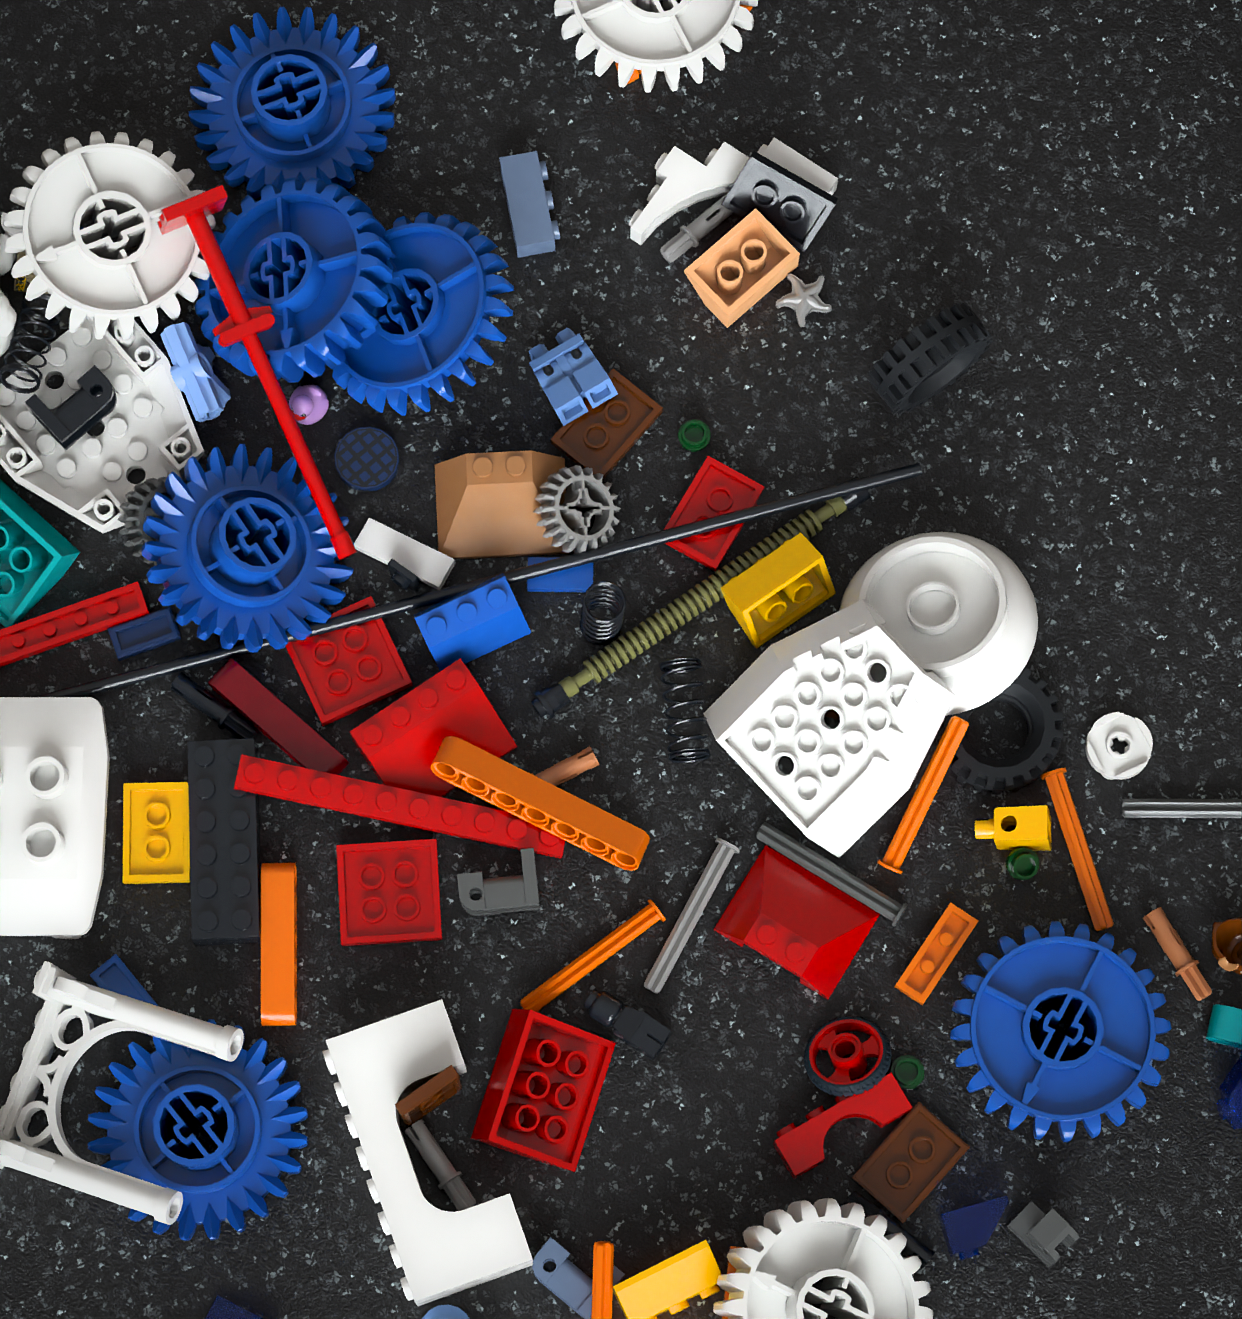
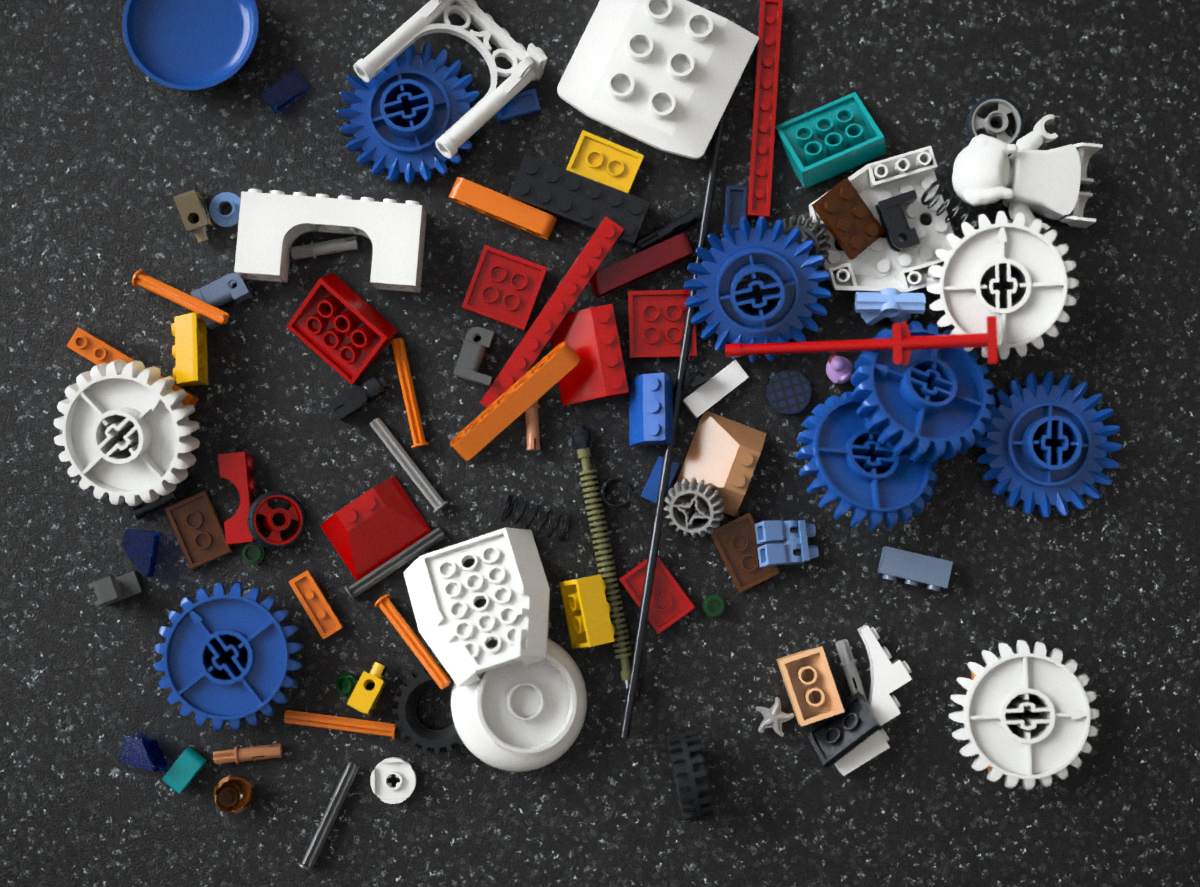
camera: 115 degrees right, 10 degrees up
(99, 472) = (848, 218): none -> reddish brown plate
(429, 1096) = (361, 252): reddish brown tile -> none

